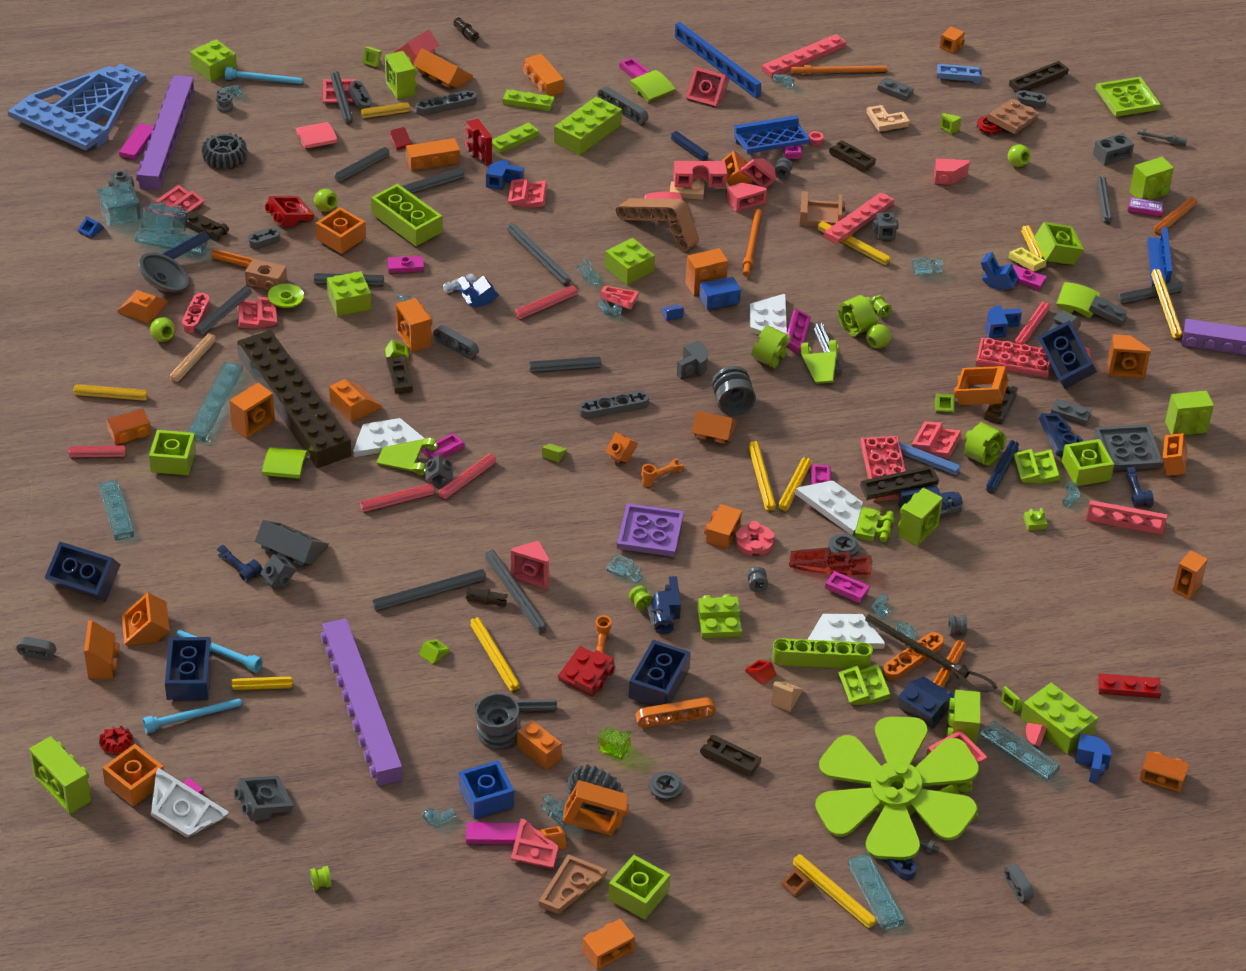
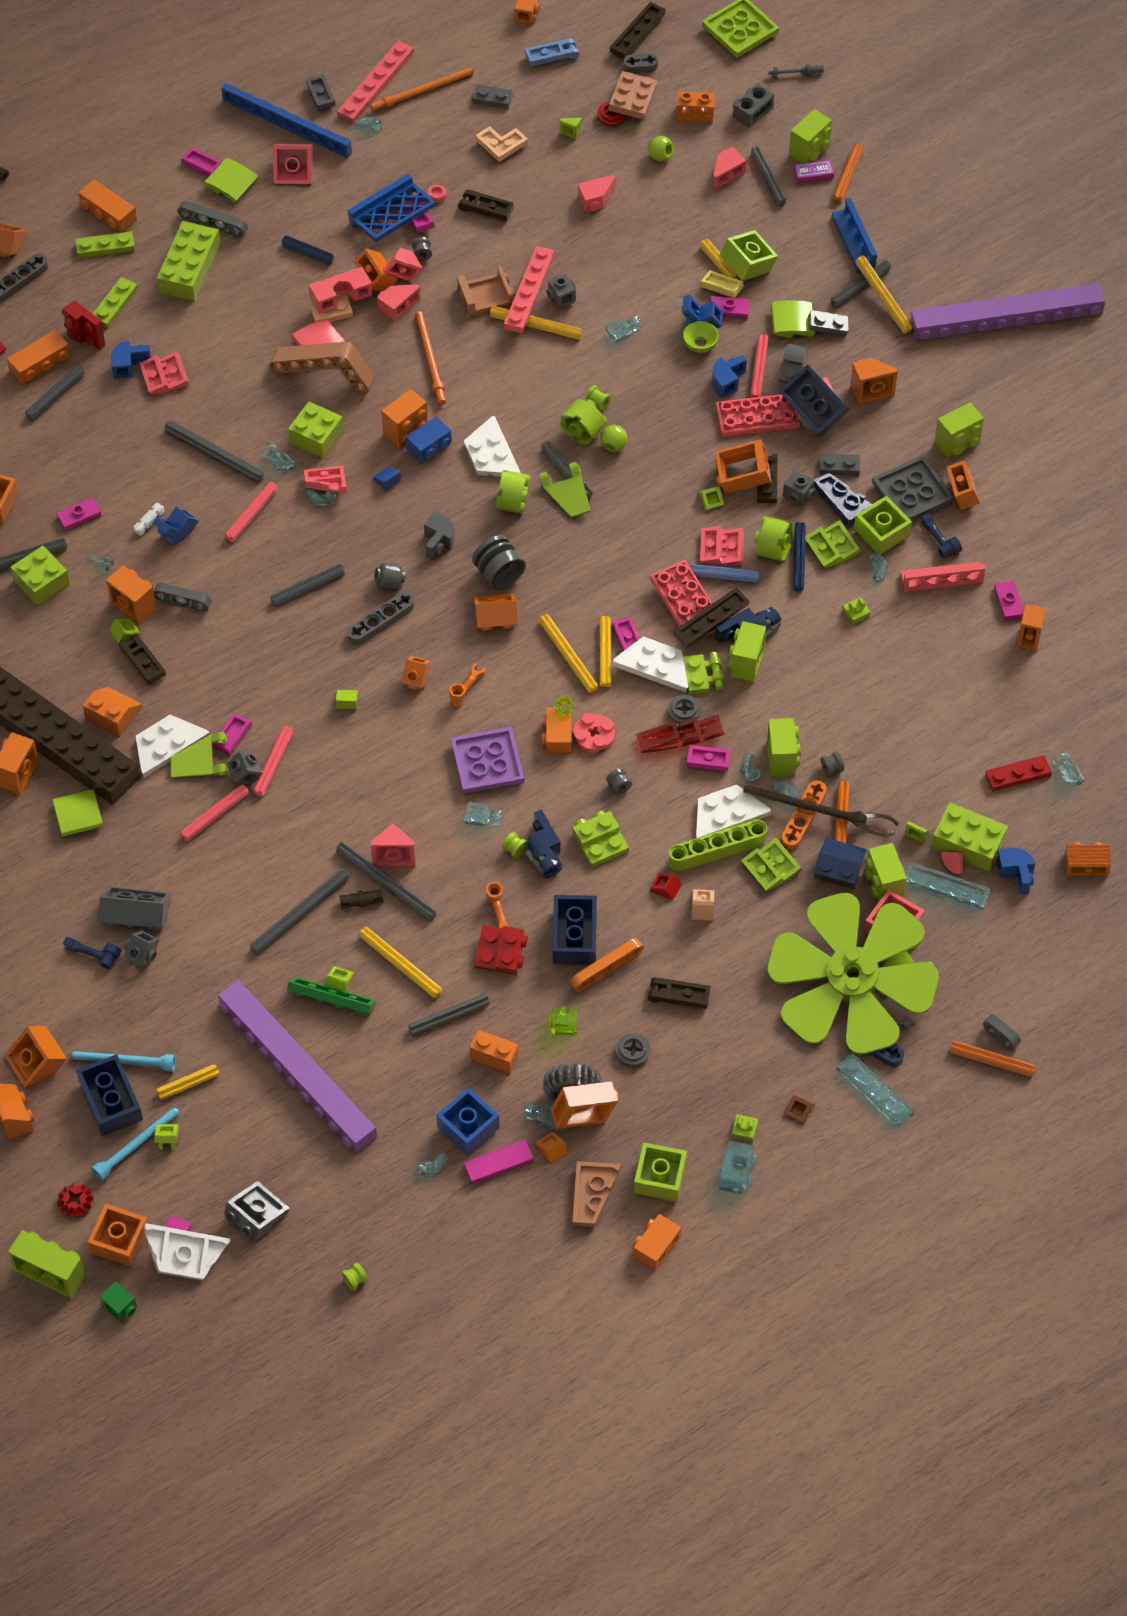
camera: 20 degrees left, 15 degrees up
(105, 827) = (118, 1302): none -> green brick
(221, 714) = (166, 1134): none -> lime tile
(406, 214) = (51, 450): lime brick -> none
(426, 662) = (324, 993): none -> green plate
(497, 720) = (443, 1030): dark grey wheel -> none
(533, 847) = (541, 1166): coral wing -> none
(636, 376) = (389, 576): none -> dark grey head
(713, 909) = (737, 1155): none -> clear light blue brick
(735, 510) = (558, 705): none -> clear neon green bush
(737, 881) = (744, 1128): none -> lime tile
(755, 50) = (320, 92): none -> dark grey plate
(797, 330) = (527, 457): dark pink tile -> none
(834, 891) = (838, 1104): yellow axle -> none
(916, 595) = (783, 747): none -> lime brick
(992, 286) = (700, 331): none -> lime piece
(1000, 902) = (992, 1058): none -> orange axle
(1024, 415) = (799, 488): none -> dark grey brick
(1062, 136) = (695, 106): none -> orange brick
(1070, 183) = (728, 167): none -> coral slope
(1178, 550) = (1009, 600): none -> dark pink plate
(1178, 697) = (1069, 770): none -> clear light blue plate

